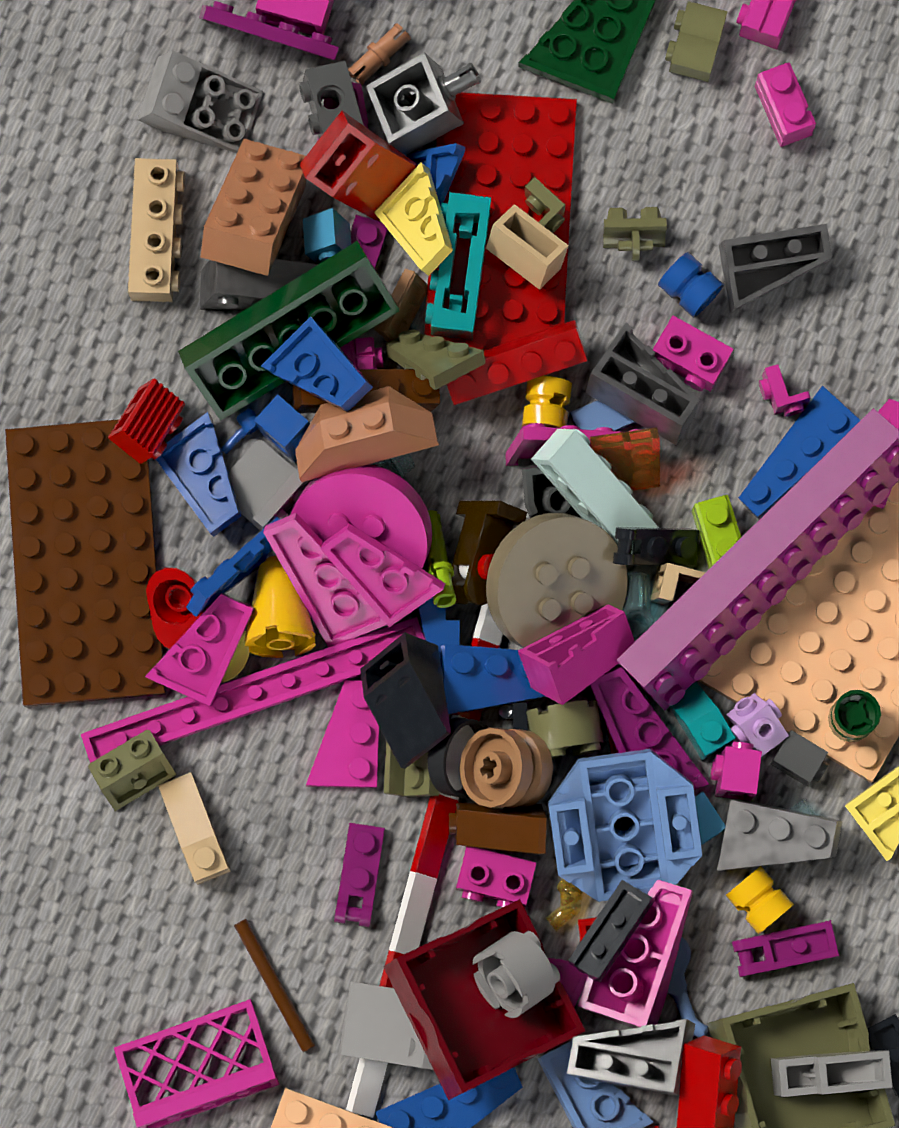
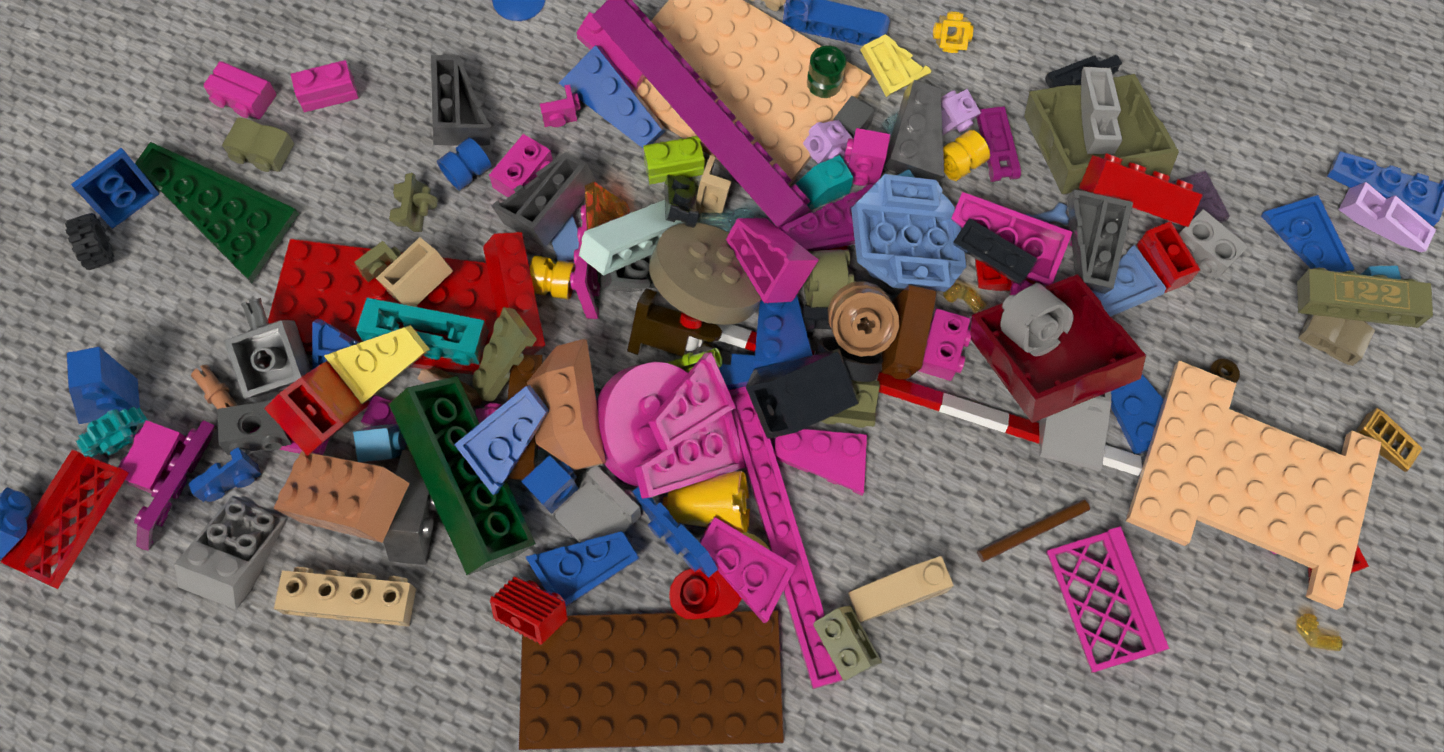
camera: 90 degrees left, 10 degrees down
(248, 426) = (538, 524): blue hand -> none
(285, 95) = (218, 479): none -> blue wing
(359, 873) = (939, 454): magenta plate -> none
(821, 890) = (960, 109): none -> lavender brick

